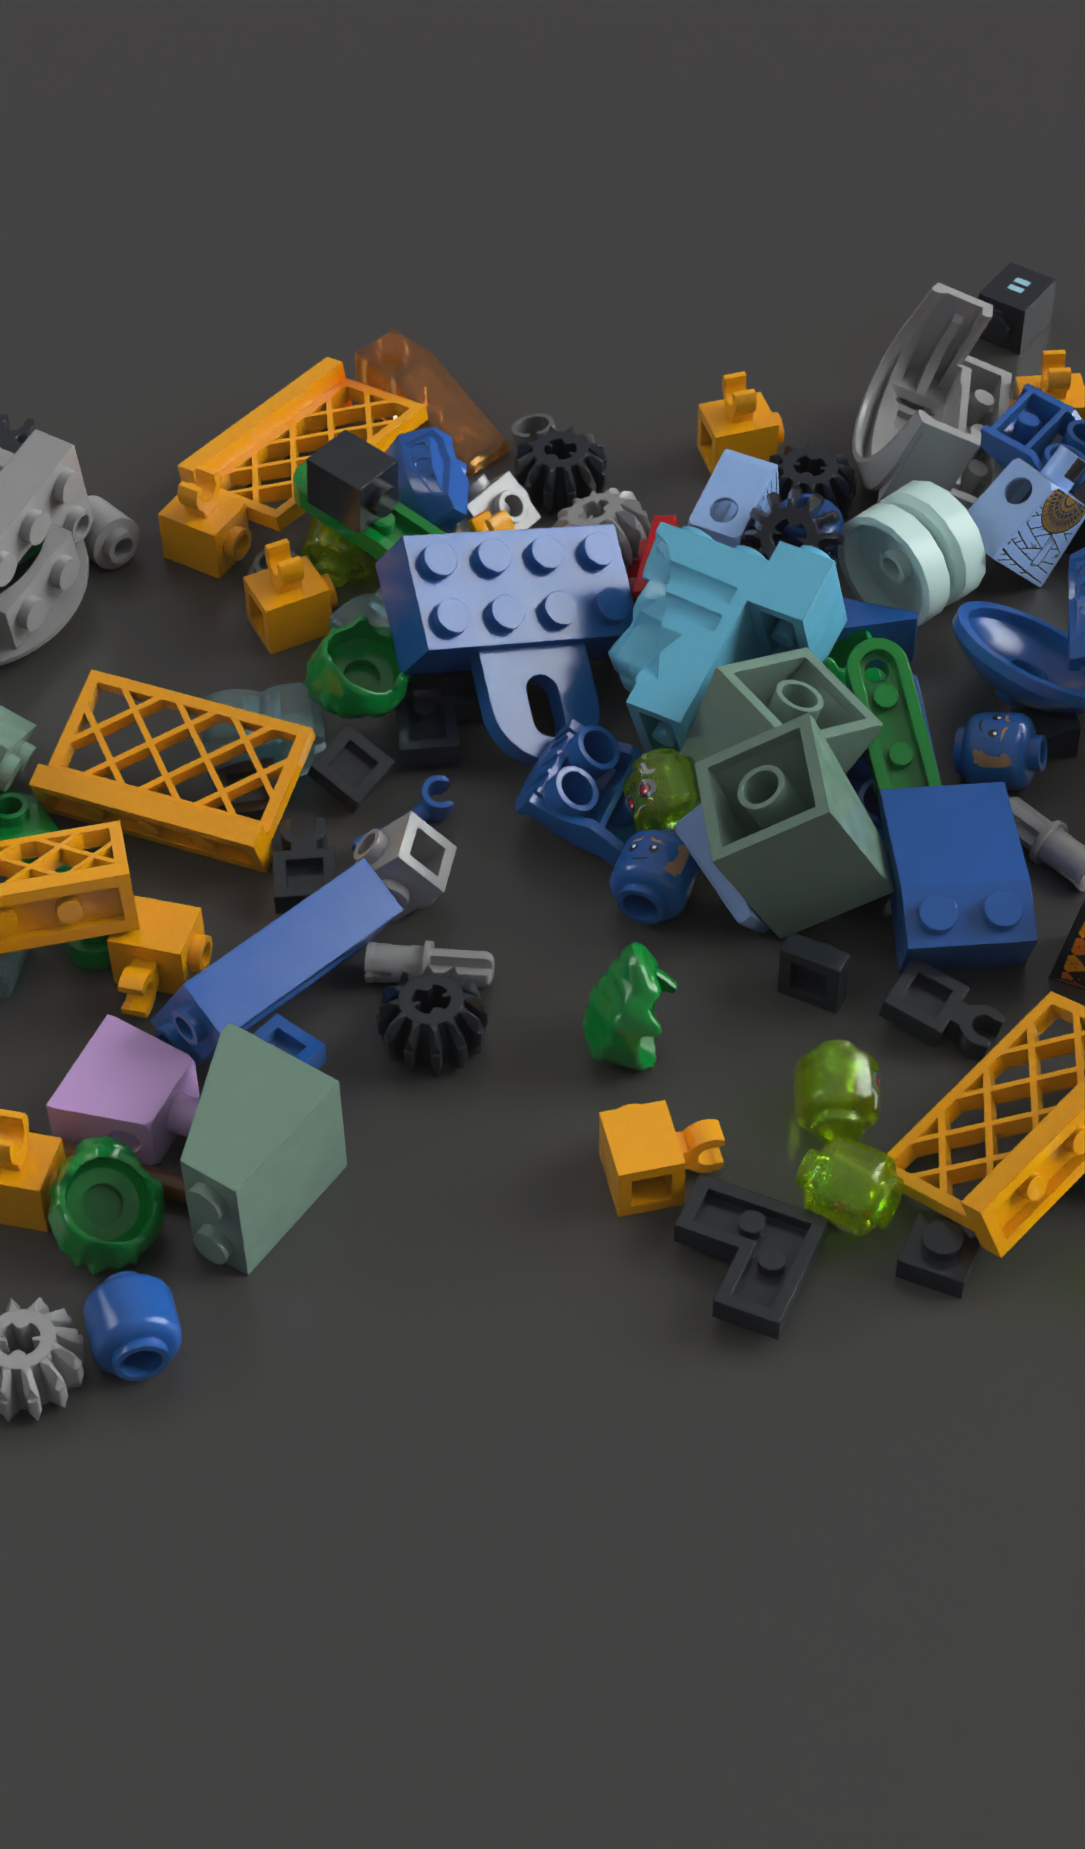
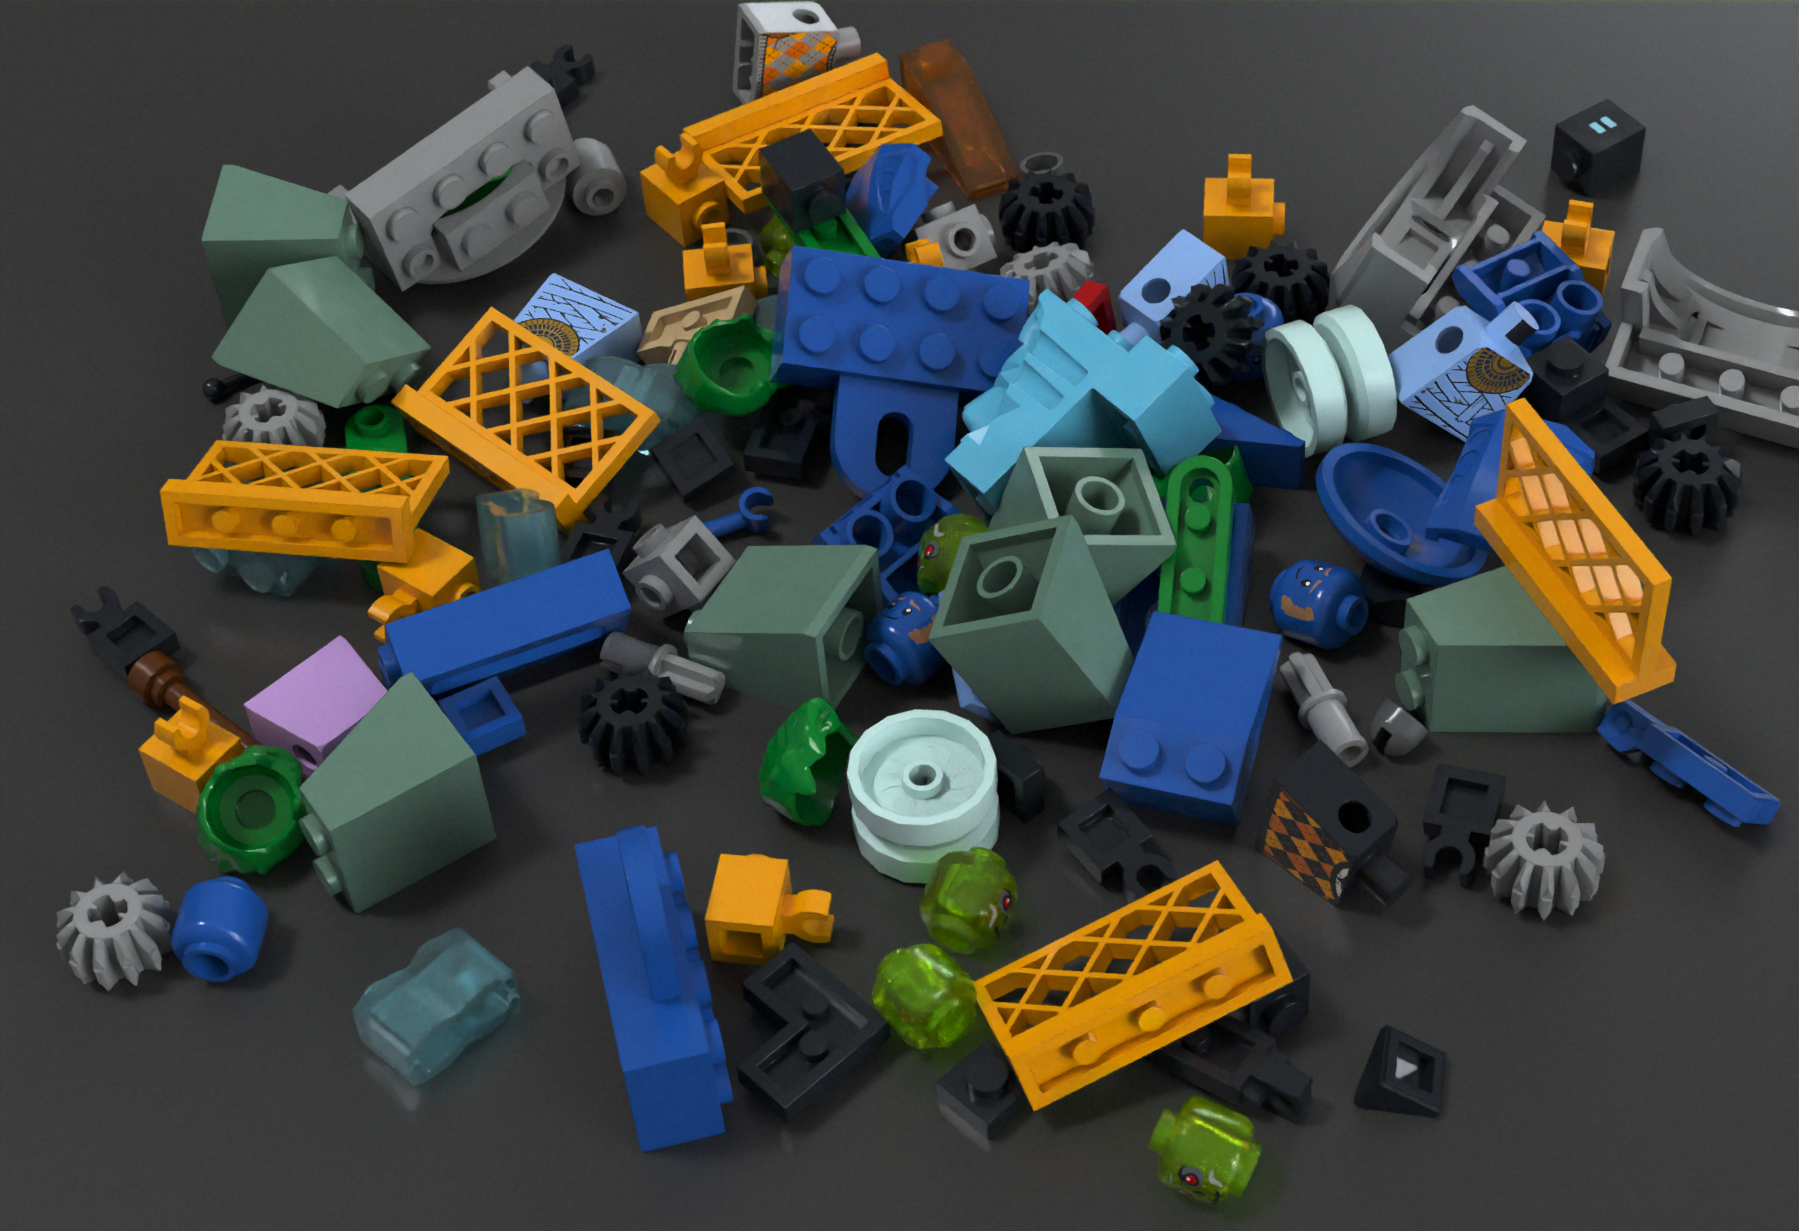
camera: 25 degrees right, 0 degrees up
(173, 663) = (578, 325): none -> light blue torso
(233, 373) = (785, 46): none -> light grey torso
(238, 878) = (517, 534): none -> clear light blue brick
(284, 647) = (675, 326): none -> tan plate
(389, 1332) = (436, 1005): none -> clear light blue brick
(536, 889) = (790, 622): none -> sand green slope
(592, 1220) = (655, 987): none -> blue brick
(751, 1008) = (922, 790): none -> light aqua wheel

